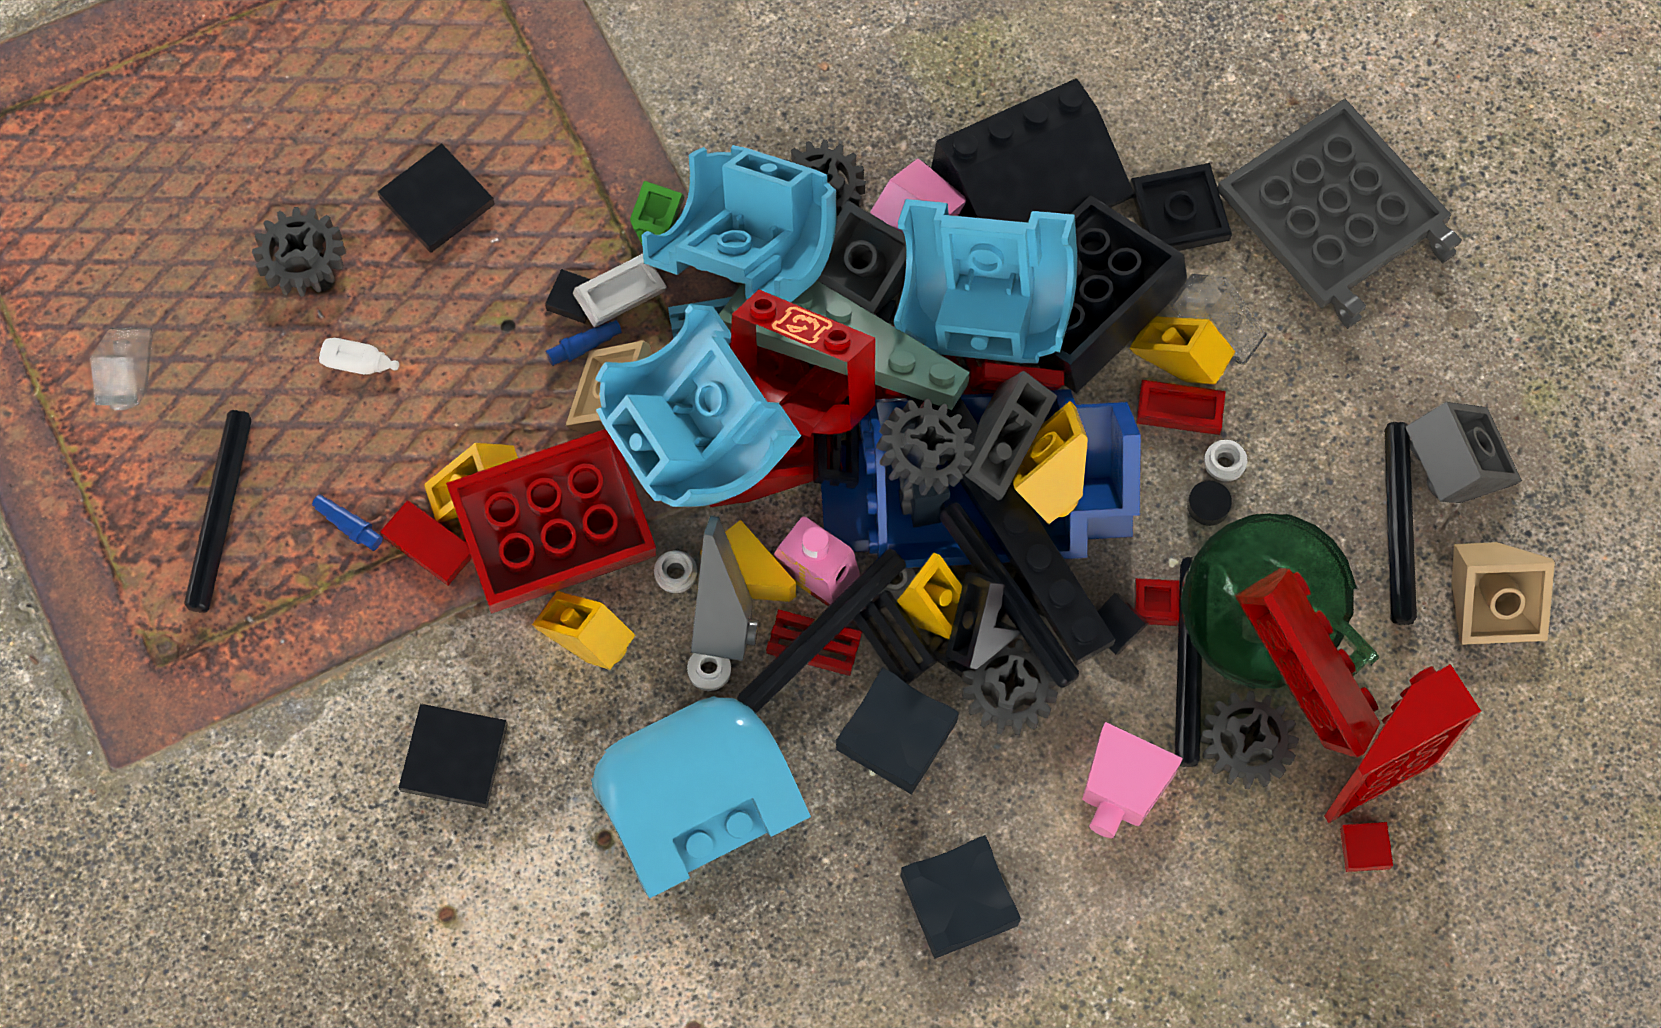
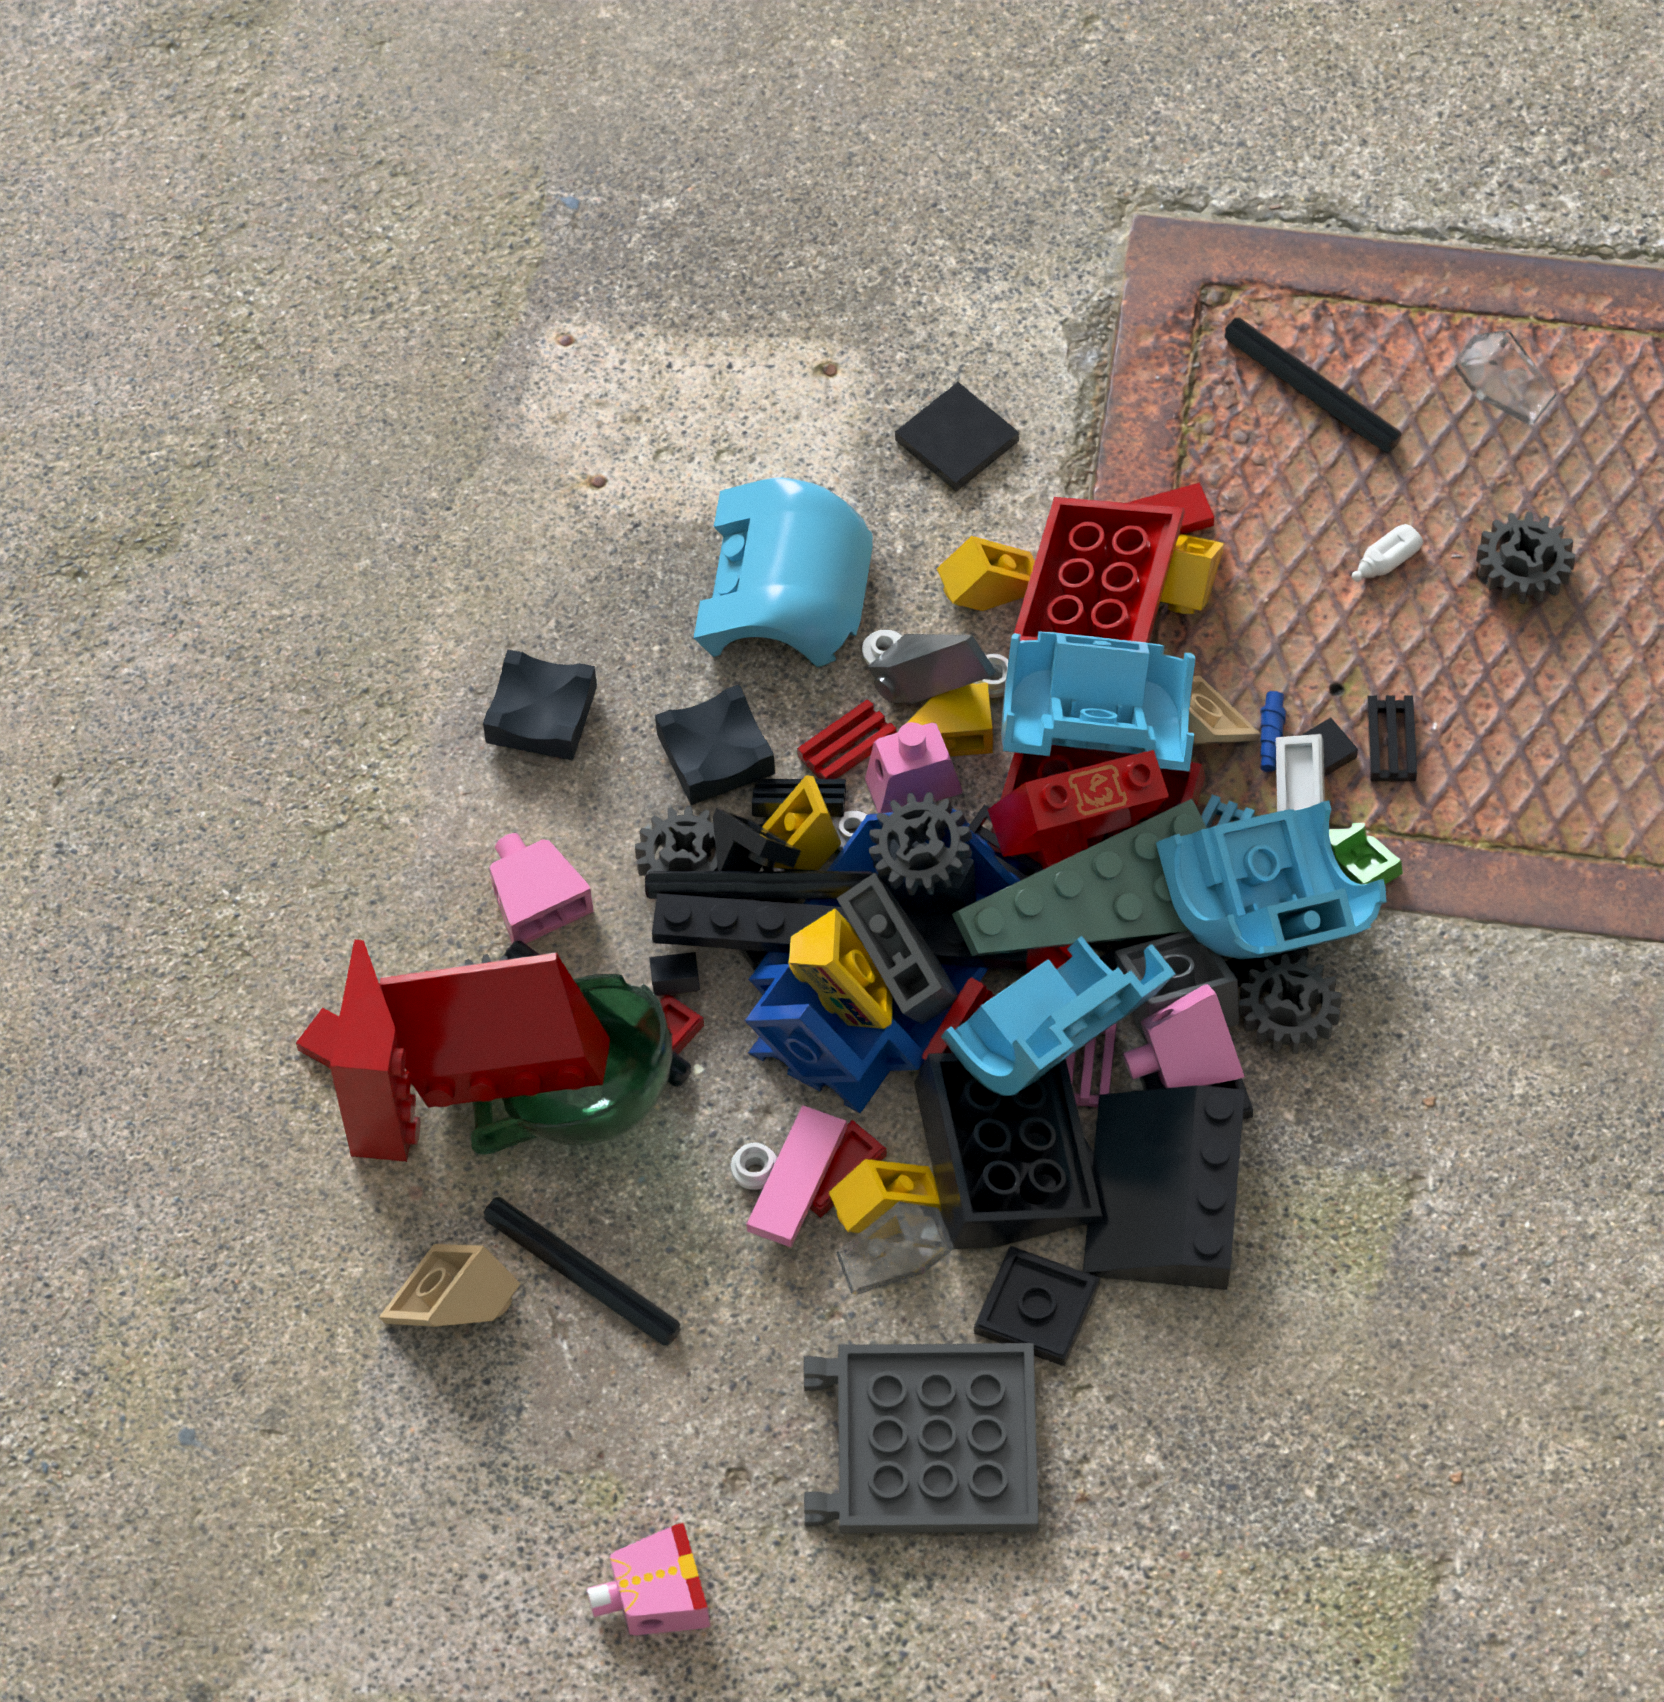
camera: 130 degrees right, 10 degrees down
(350, 524) = (1227, 469): blue animal -> none
(436, 198) = (1510, 697): black tile -> none
(525, 243) = (1391, 707): none -> black tile
(822, 630) = (845, 737): black axle -> none
(1209, 503) = (726, 1127): black tile -> none
(1217, 416) = (796, 1176): none -> bright pink tile
(1461, 452) = (598, 1365): dark grey slope -> none
(1586, 305) = (654, 1585): none -> bright pink torso

